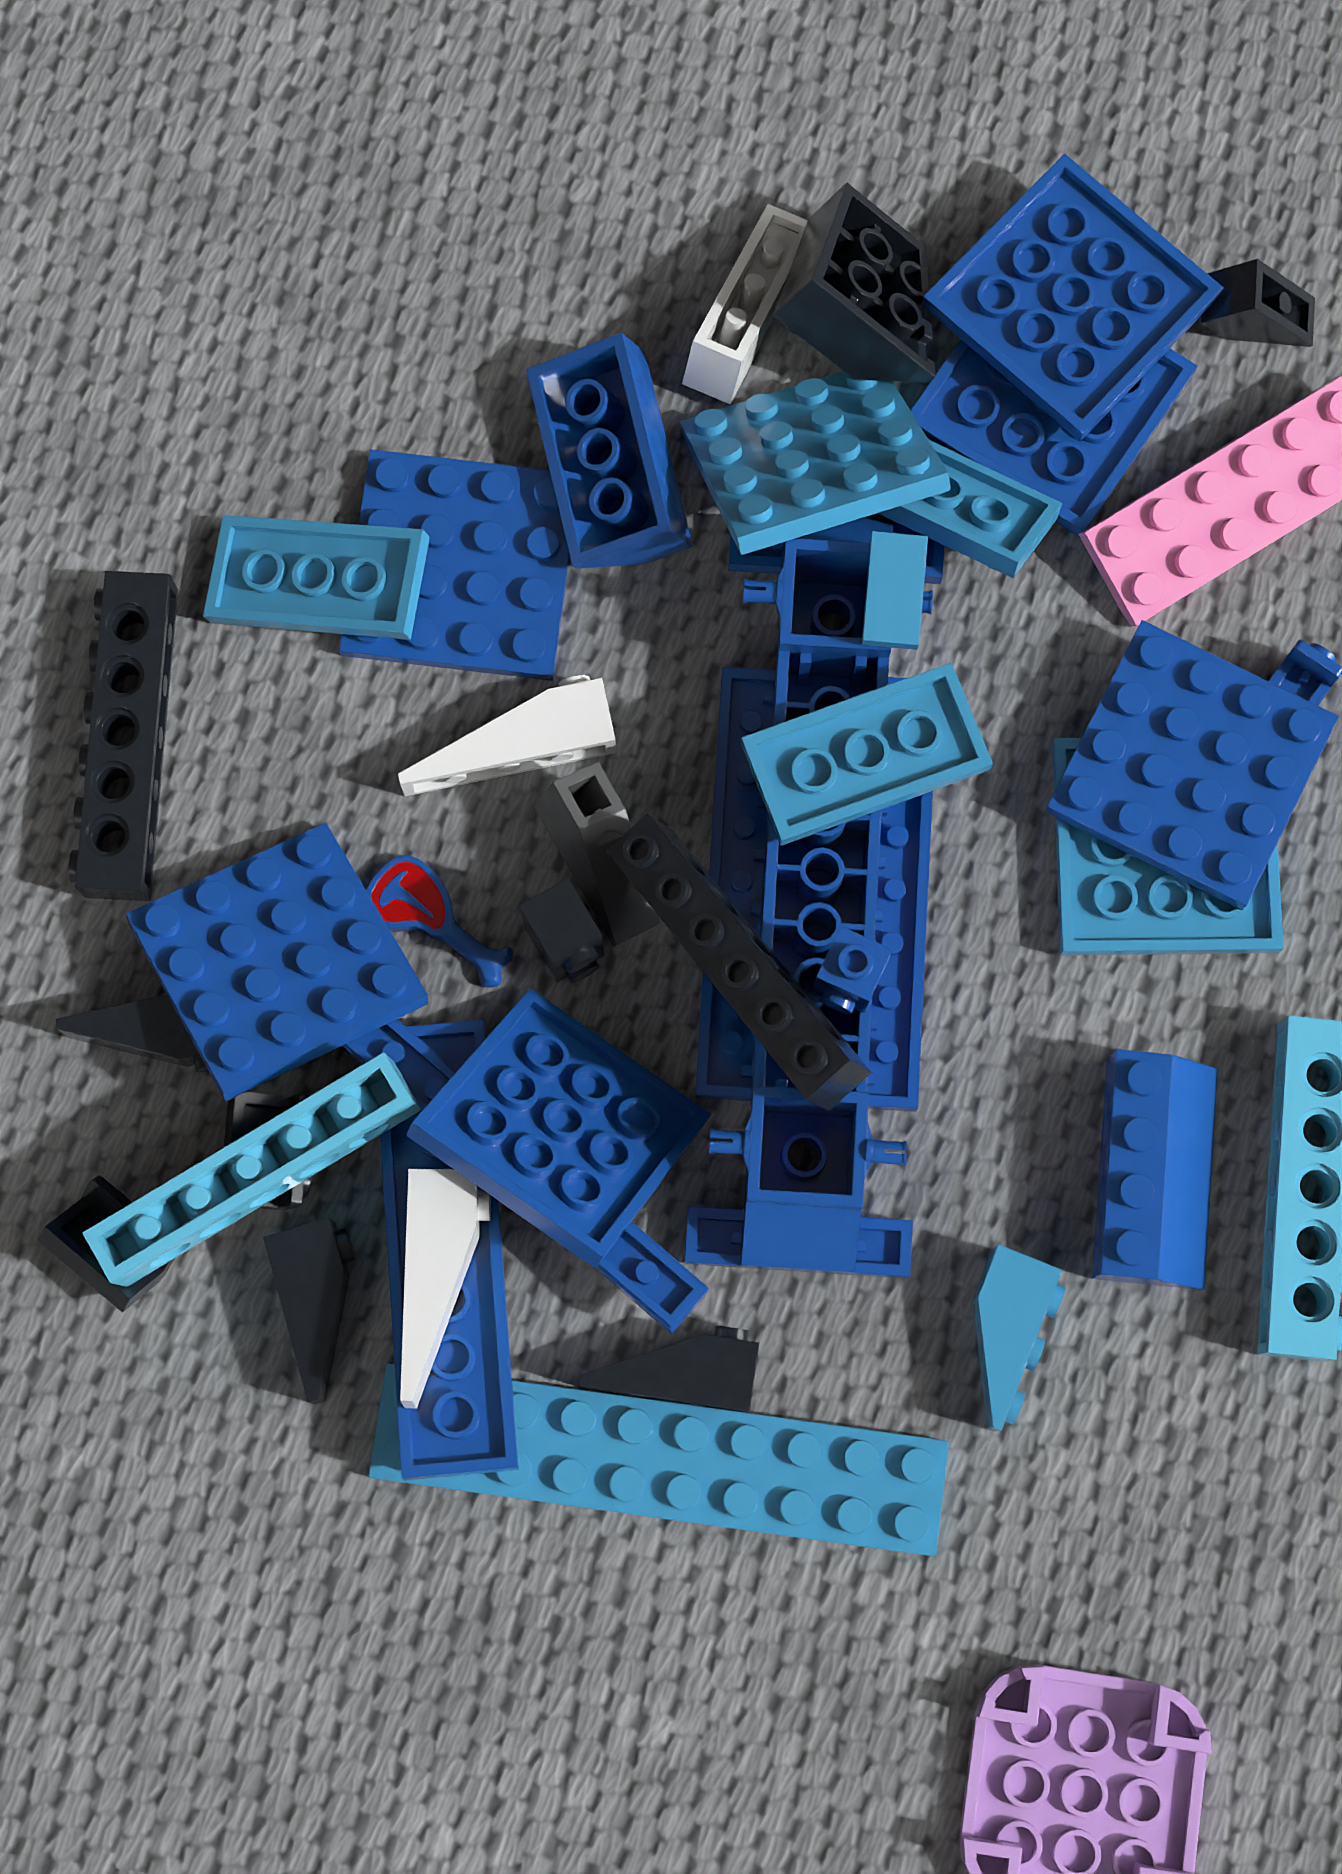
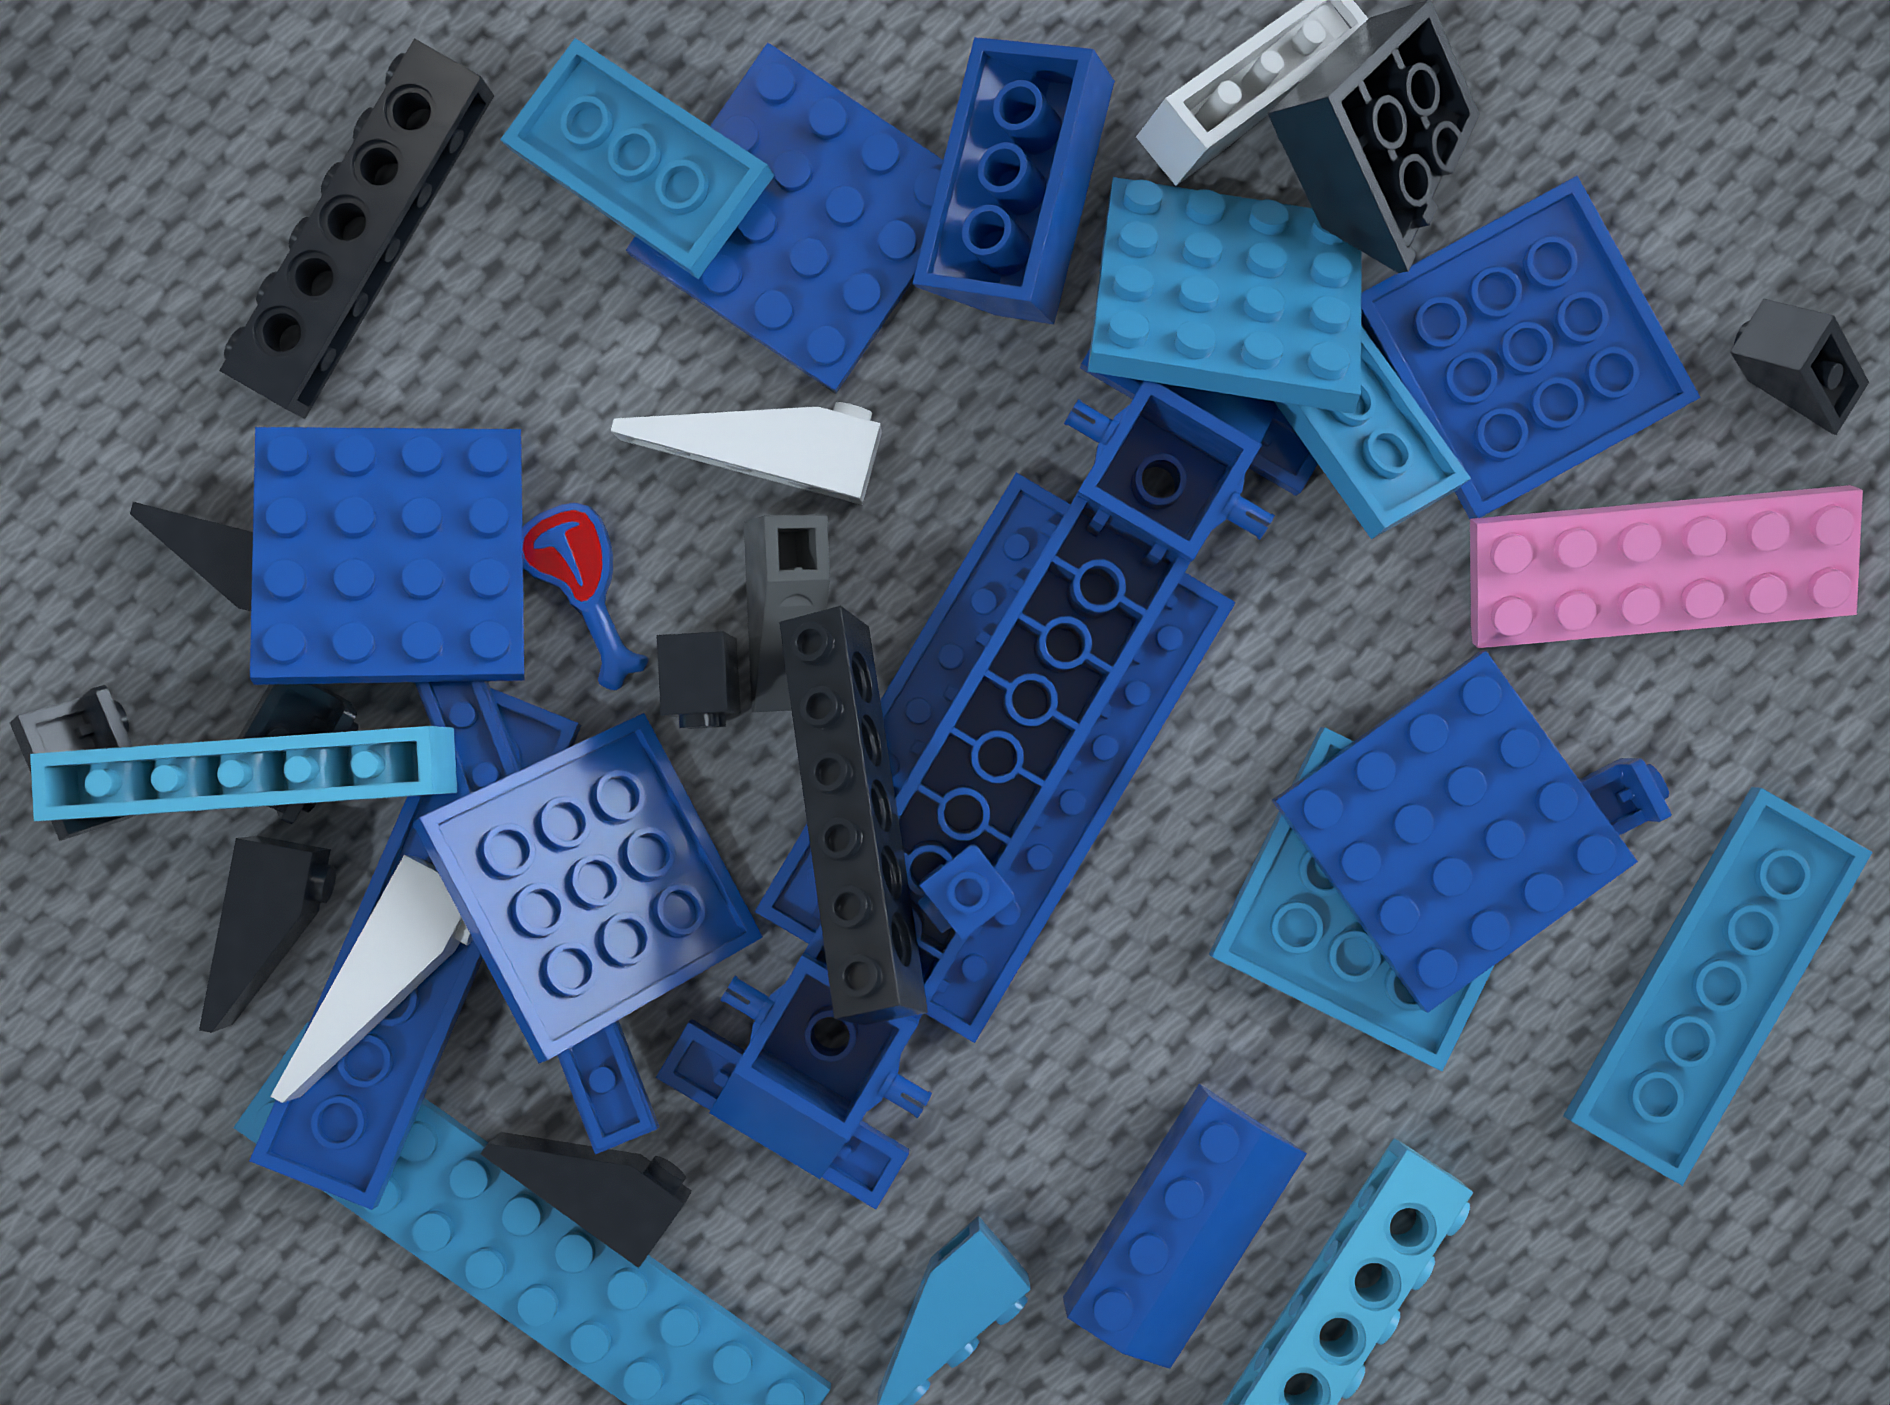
camera: 25 degrees right, 10 degrees up
(866, 753) = (1108, 659): dark azure plate -> none
(894, 590) = (1231, 497): dark azure tile -> none
(1072, 296) = (1607, 252): blue plate -> none

